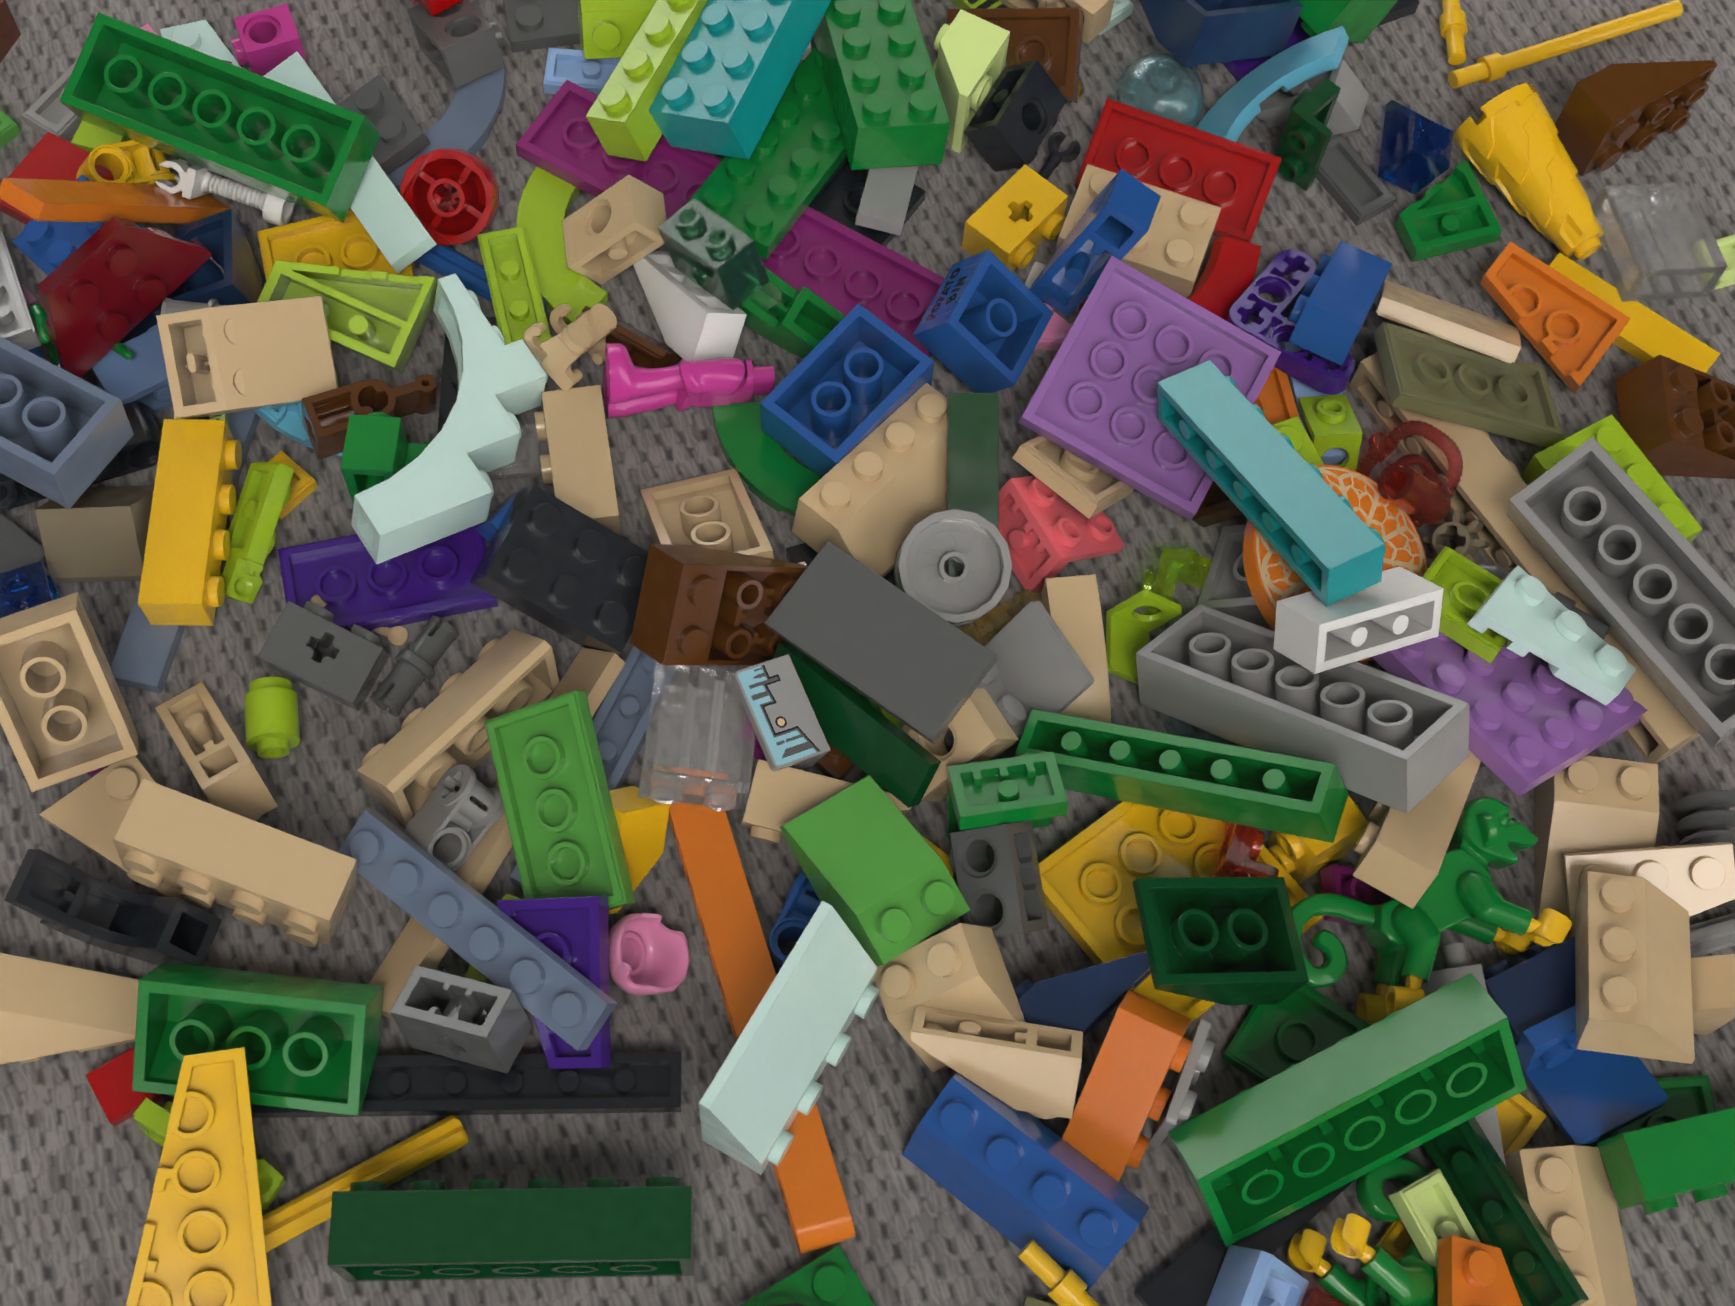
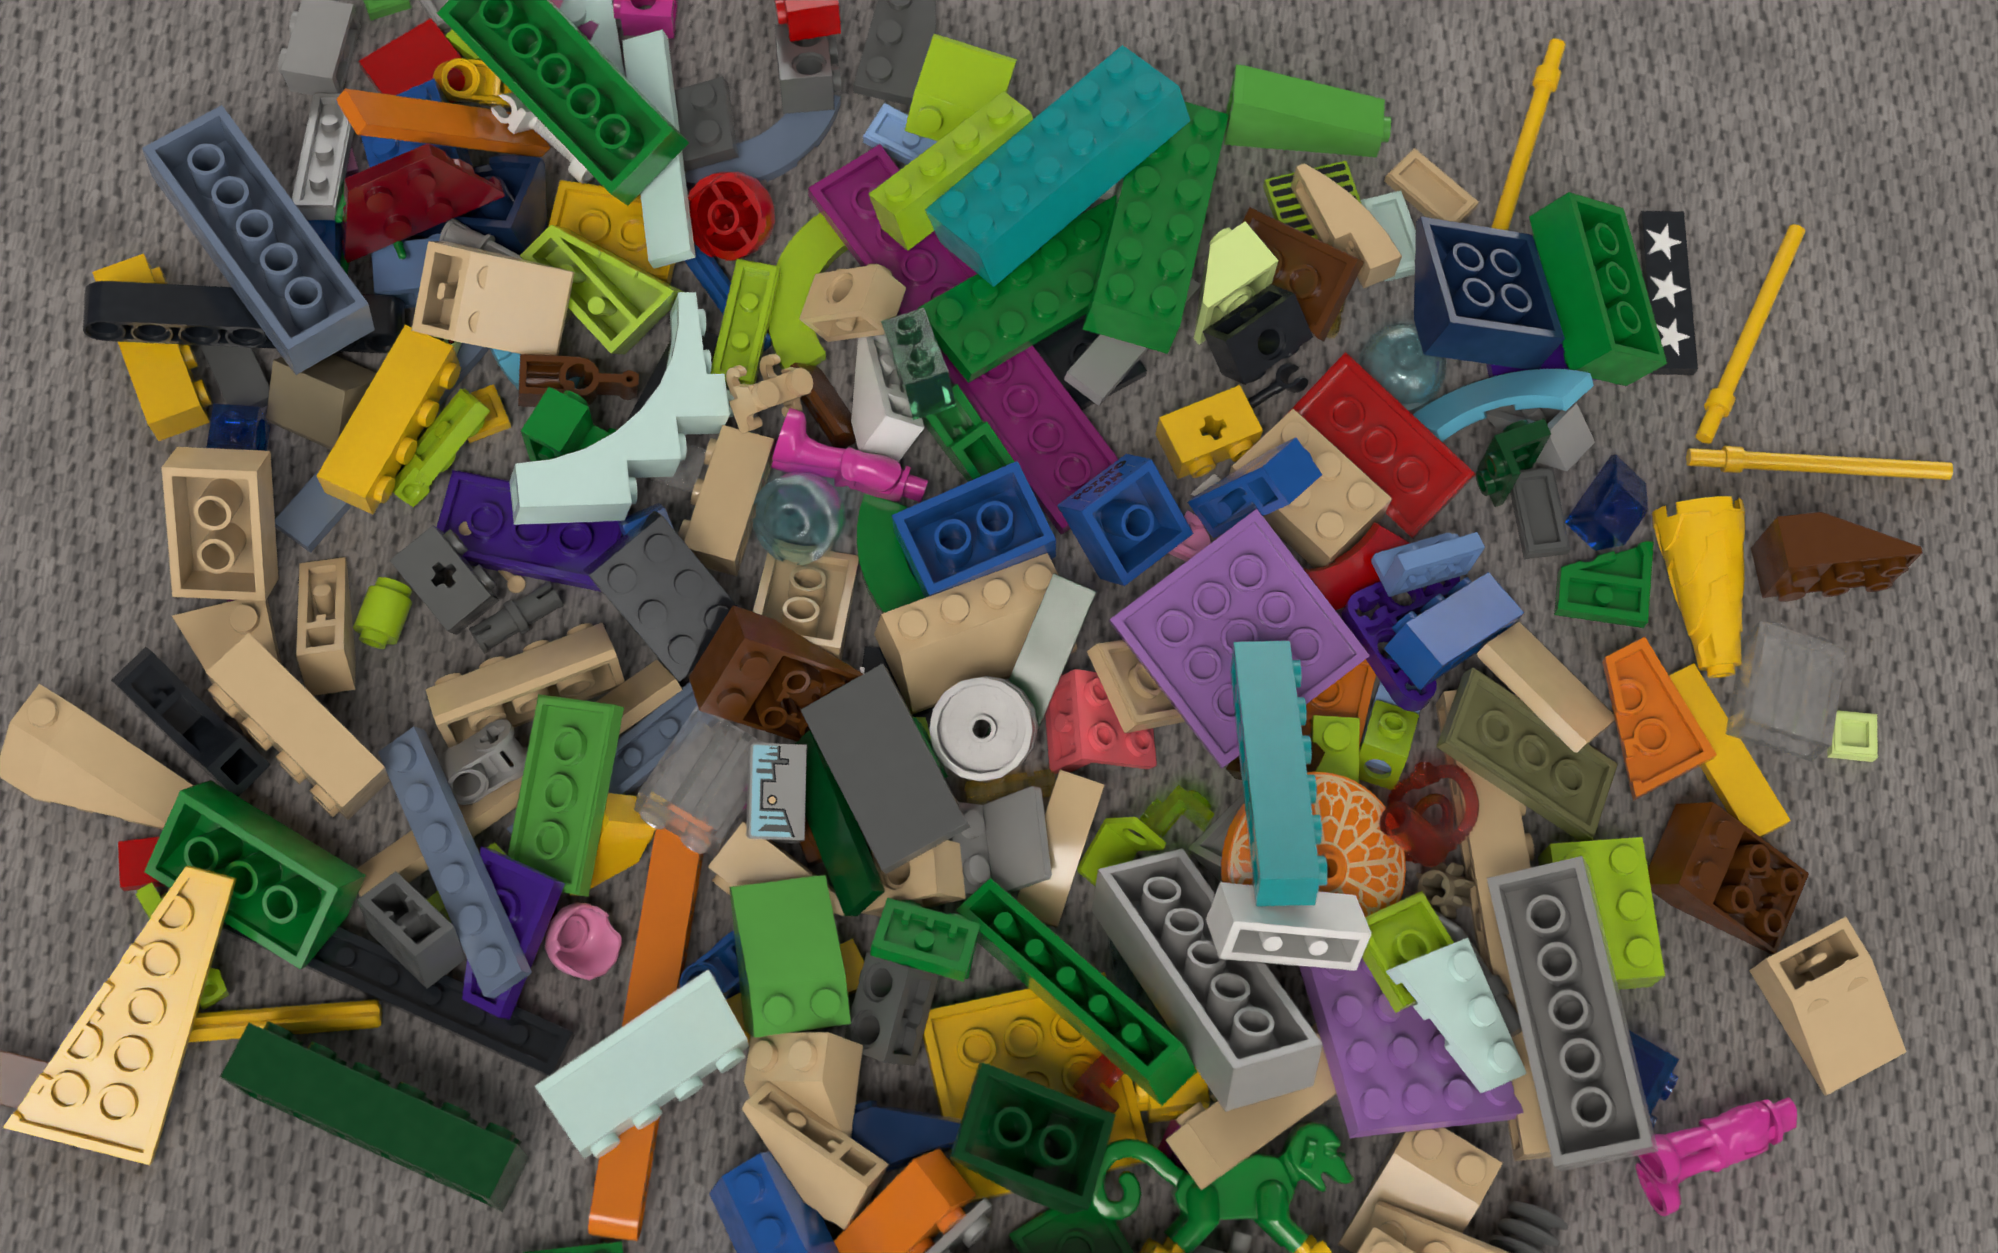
camera: 25 degrees right, 5 degrees up
(649, 463) = (799, 517): none -> clear light blue cylinder
(1285, 249) = (1427, 561): none -> medium blue bracket

